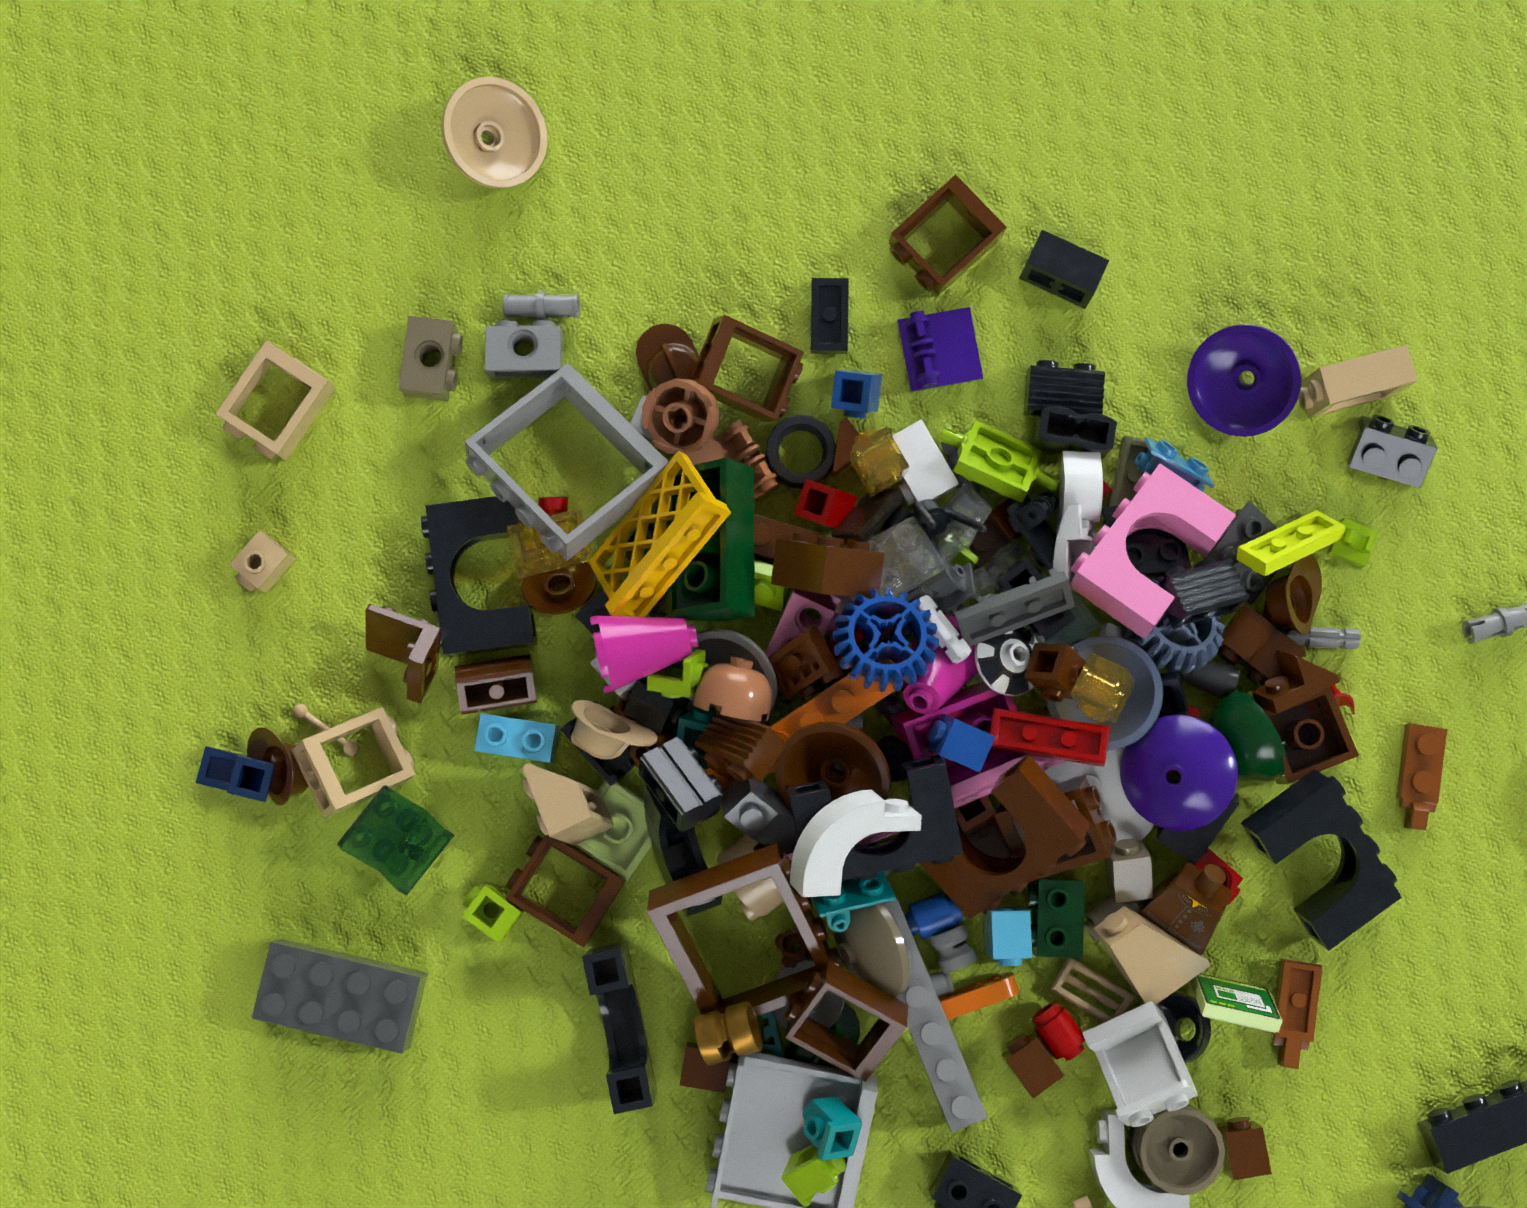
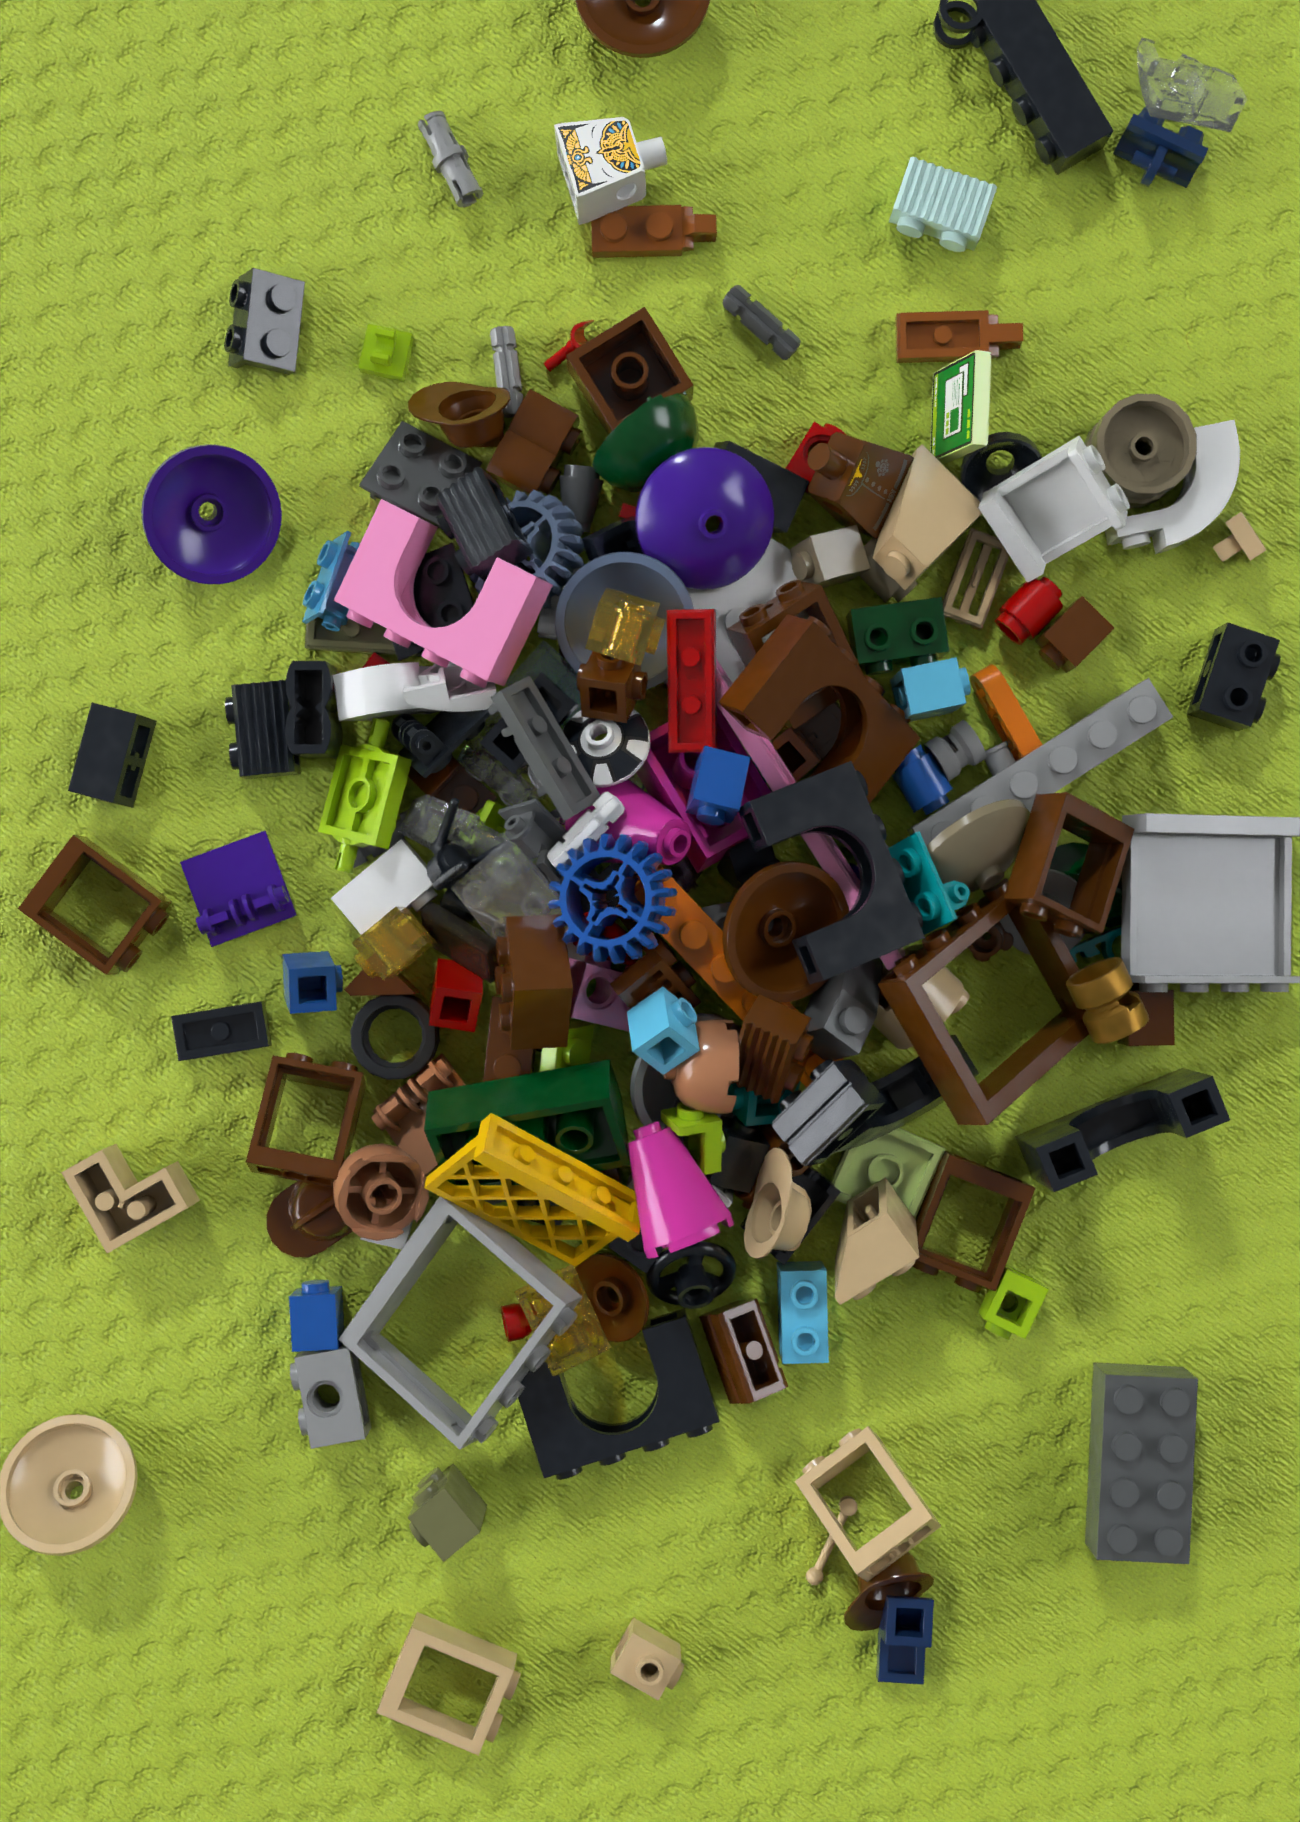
camera: 100 degrees left, 5 degrees up
(396, 838) = (947, 1433): clear green bracket -> none
(407, 641) = (710, 1465): reddish brown bracket -> none
(415, 422) = (446, 1511): none -> olive brick
(421, 338) = (341, 1523): dark tan brick -> none
(541, 305) = (272, 1383): light grey pin -> none
(559, 652) = (692, 1283): none -> black piece
(588, 349) = (316, 1316): none -> blue brick
(704, 215) = (119, 1204): none -> tan brick
(771, 661) = (663, 1030): none -> medium azure brick
(809, 1175) = (1245, 871): lime brick -> none
(822, 1125) = (1195, 859): teal brick -> none
(835, 831) = (855, 918): white arch -> none
(1244, 1149) = (1126, 372): reddish brown brick -> none
(1290, 543) = (401, 427): neon yellow plate -> none
(1299, 682) = (571, 392): reddish brown slope -> none
(1322, 859) = (761, 322): none -> dark grey axle
(1357, 381) = (188, 376): tan window -> none
(1361, 883) = (792, 281): black arch -> none
(1406, 1019) = (942, 205): none -> light aqua brick
(1479, 746) = (605, 164): none -> white torso

